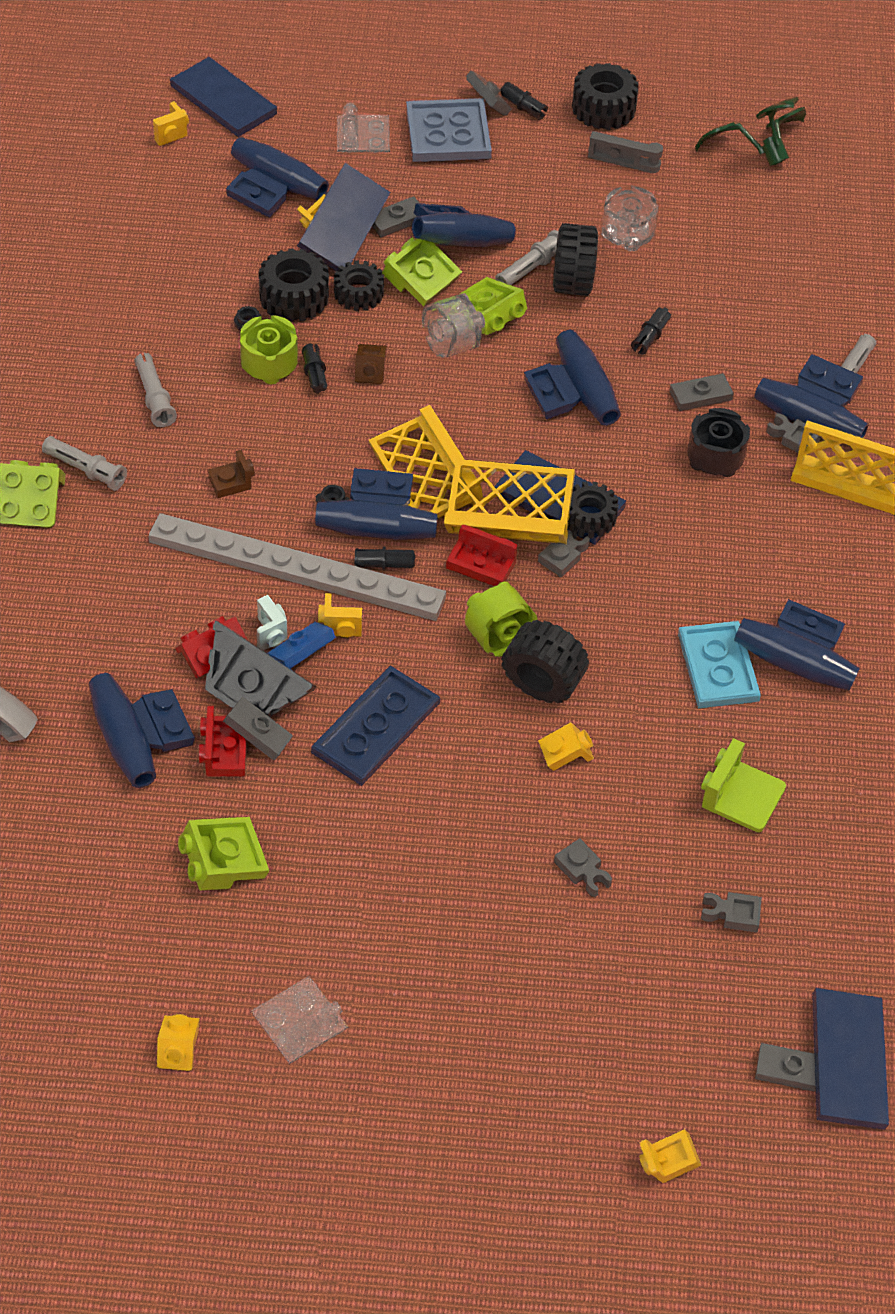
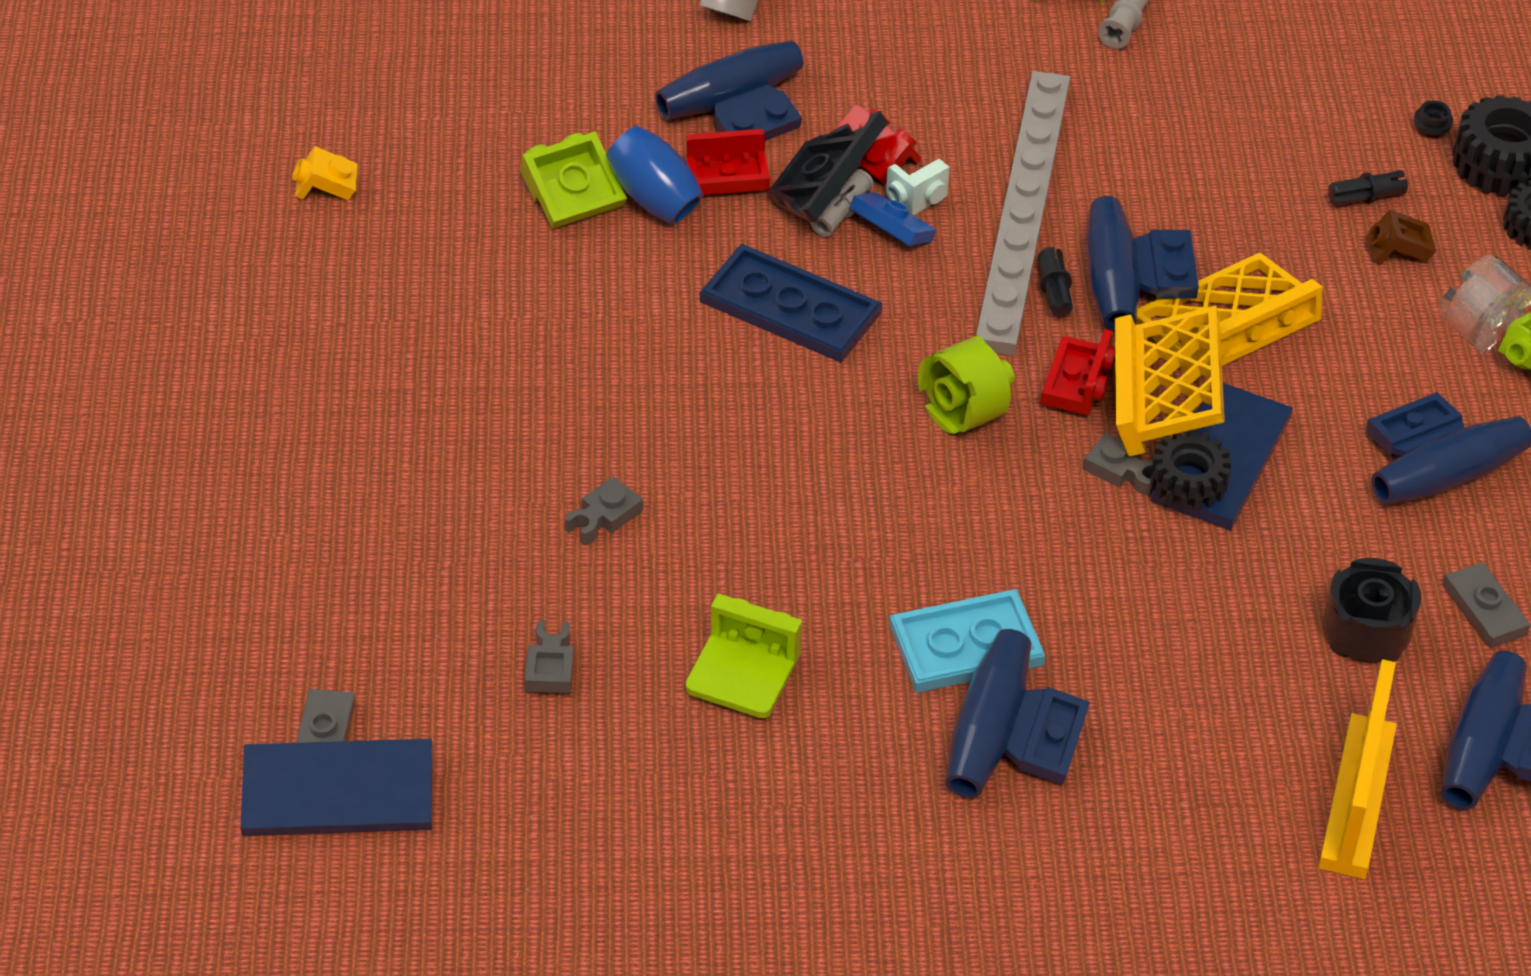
camera: 85 degrees right, 5 degrees down
(156, 397) = (1260, 51): light grey pin -> none
(232, 477) = (1152, 133): reddish brown bracket -> none
(240, 788) = (654, 175): none -> blue piece
(258, 728) = (751, 187): dark grey plate -> none
(269, 348) = (1375, 131): lime brick -> none
(300, 1019) = (359, 271): clear hinge -> none
(331, 493) = (1144, 220): black plate -> none
(343, 620) = (943, 237): yellow bracket -> none
(545, 661) = (895, 425): black tyre -> none
(565, 746) = (787, 479): yellow bracket -> none
(669, 1156) = (186, 597): yellow bracket -> none
(790, 433) = (1432, 717): dark grey plate -> none

